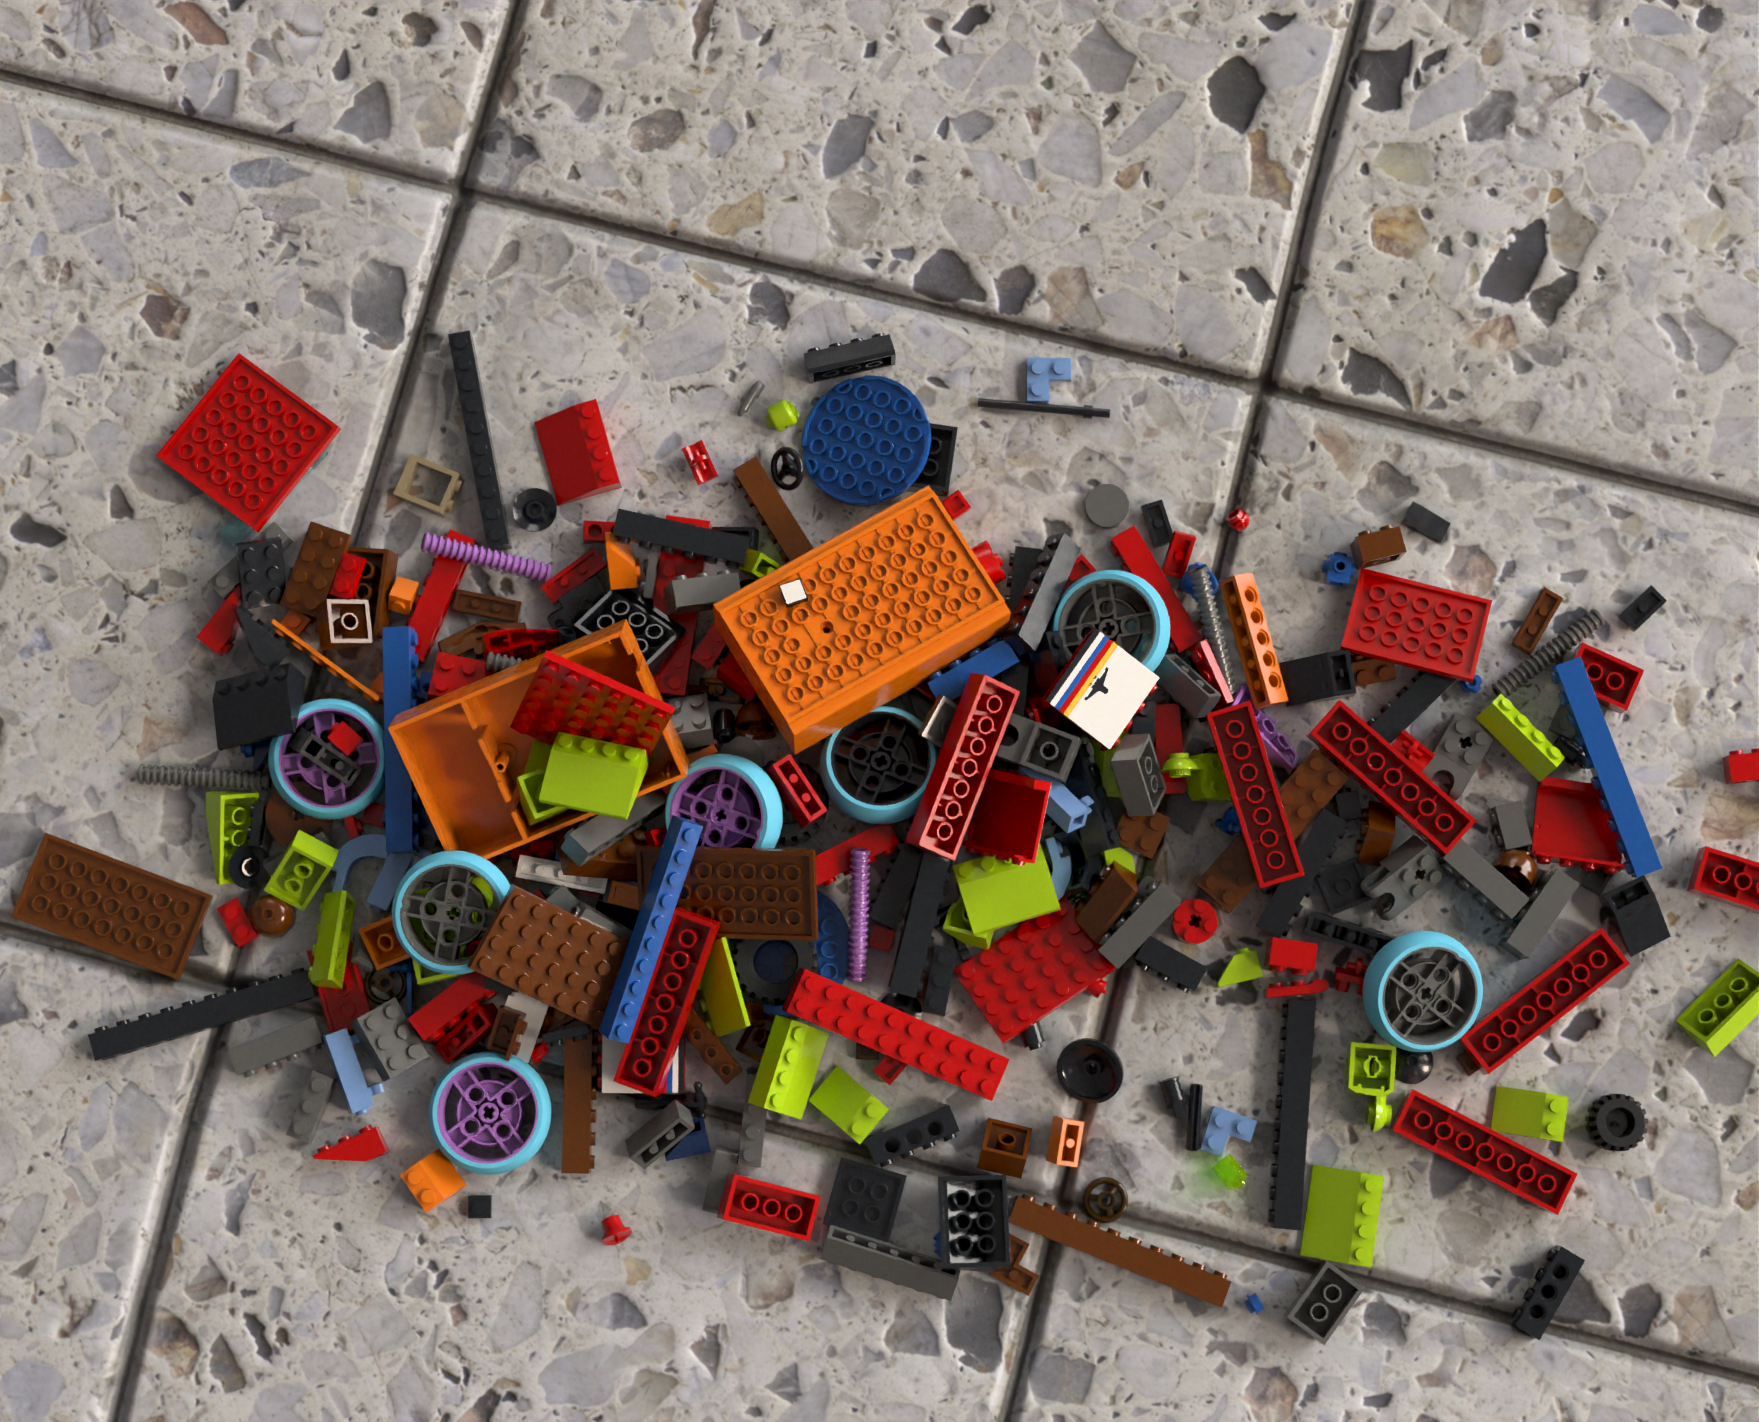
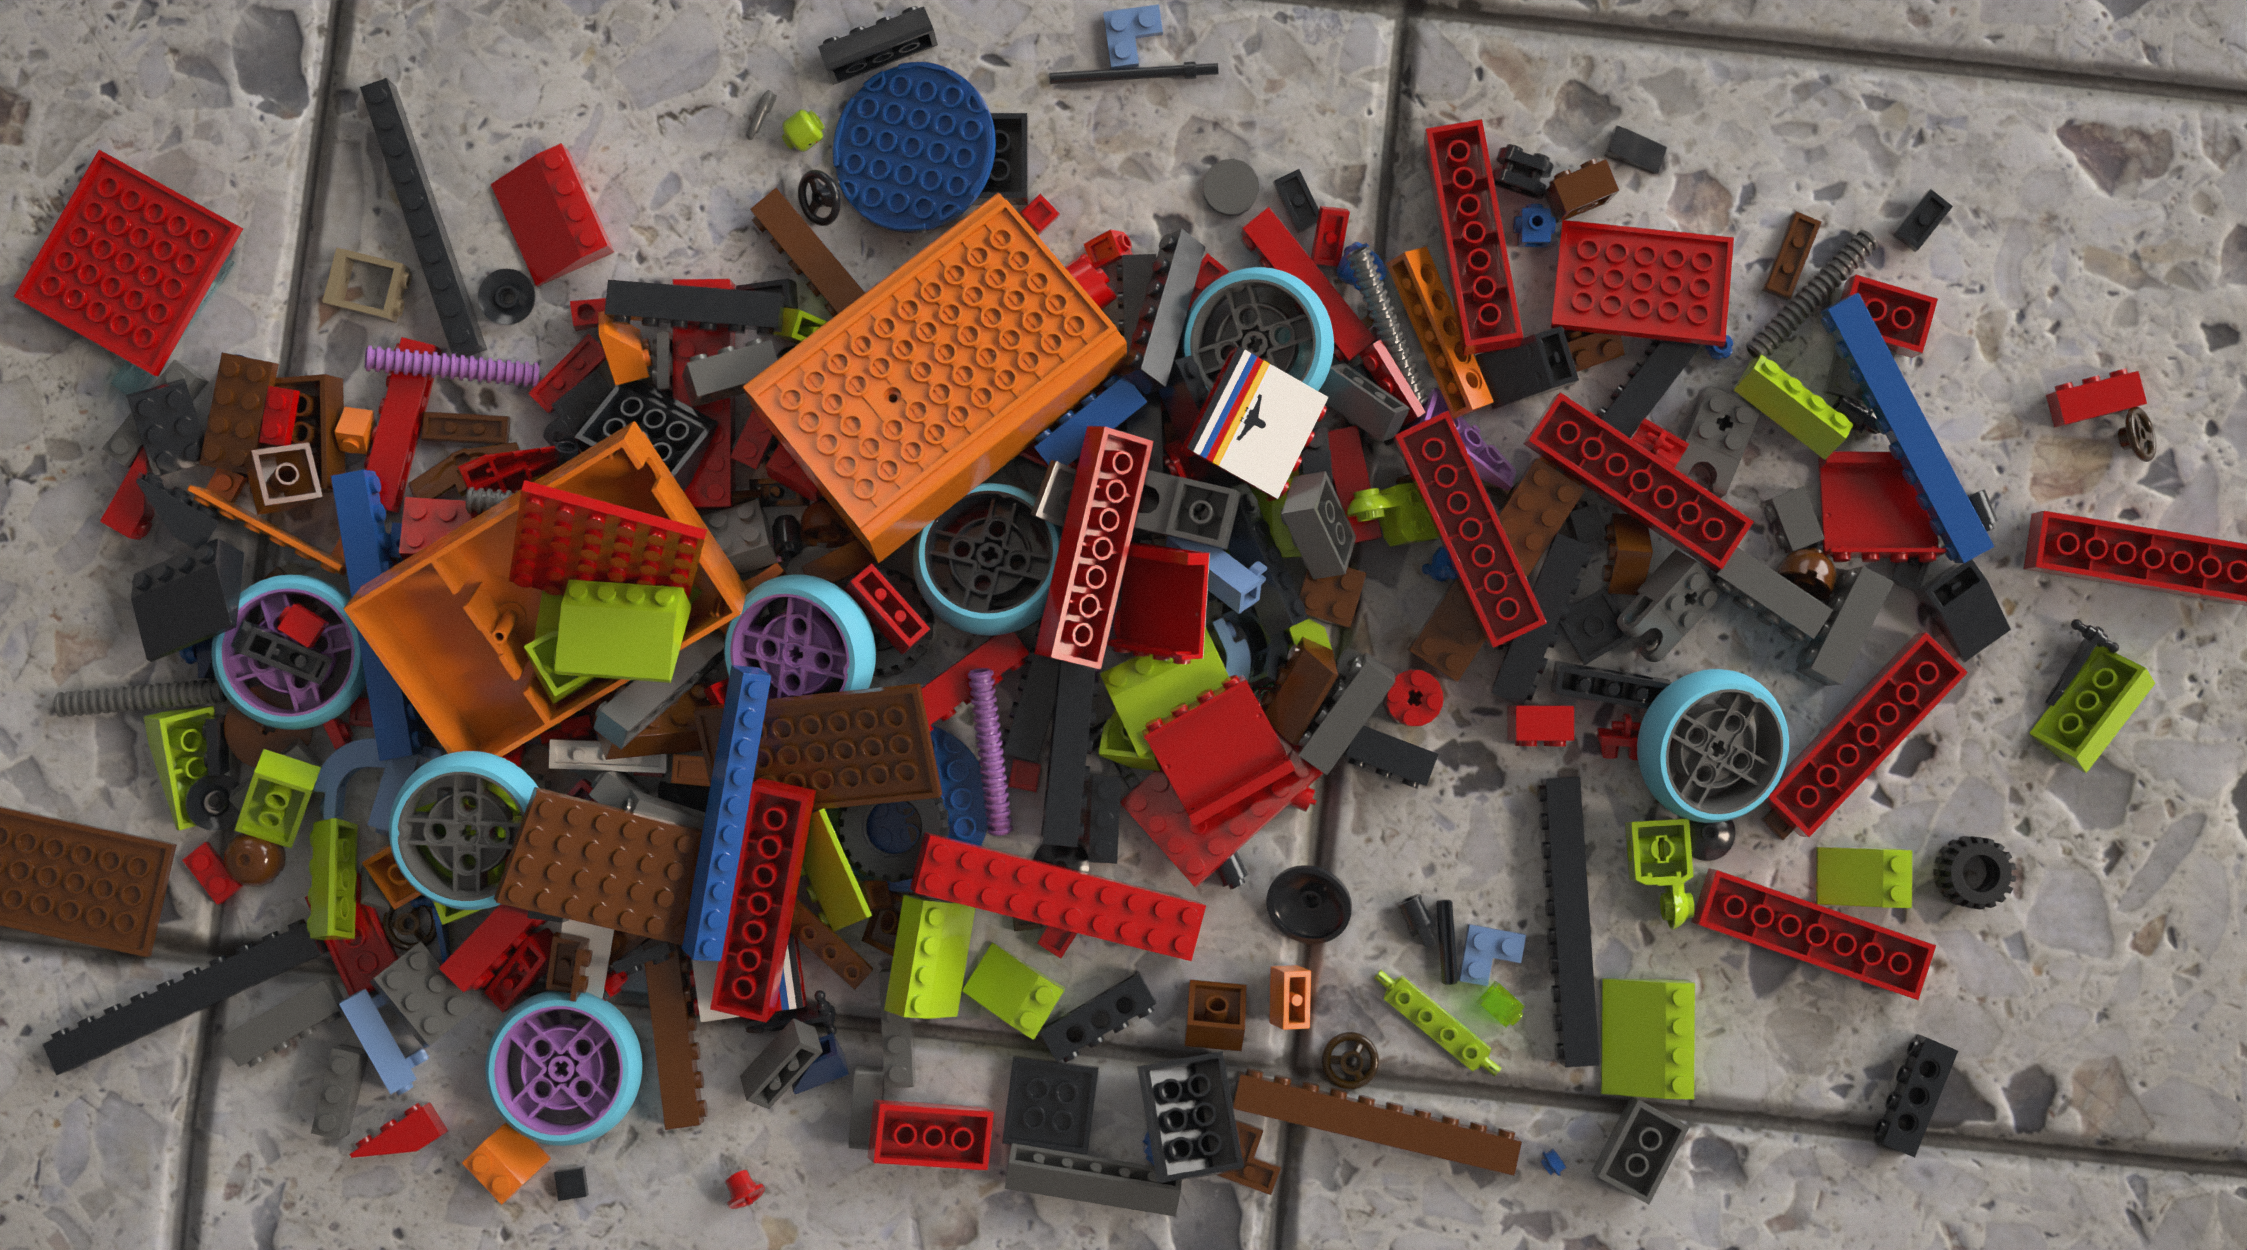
camera: 10 degrees left, 5 degrees up
(700, 462) = (707, 206): red hips -> none
(765, 750) = (840, 562): none -> reddish brown tile
(793, 593) = (843, 357): white tile -> none
(1005, 539) = (1108, 248): none -> red bracket
(1036, 936) = (1218, 749): none -> red panel
(1178, 1180) = (1437, 1023): none -> lime plate
(1238, 520) = (1399, 181): red plate -> none
(1240, 968) = (1479, 748): lime slope -> none
(1288, 571) = (1472, 237): none -> red brick
(1296, 988) = (1553, 763): red hinge -> none
(1346, 523) = (1536, 165): none -> black brick
(1659, 839) = (1983, 509): none -> black brick
(1733, 950) = (2092, 637): none -> black piece

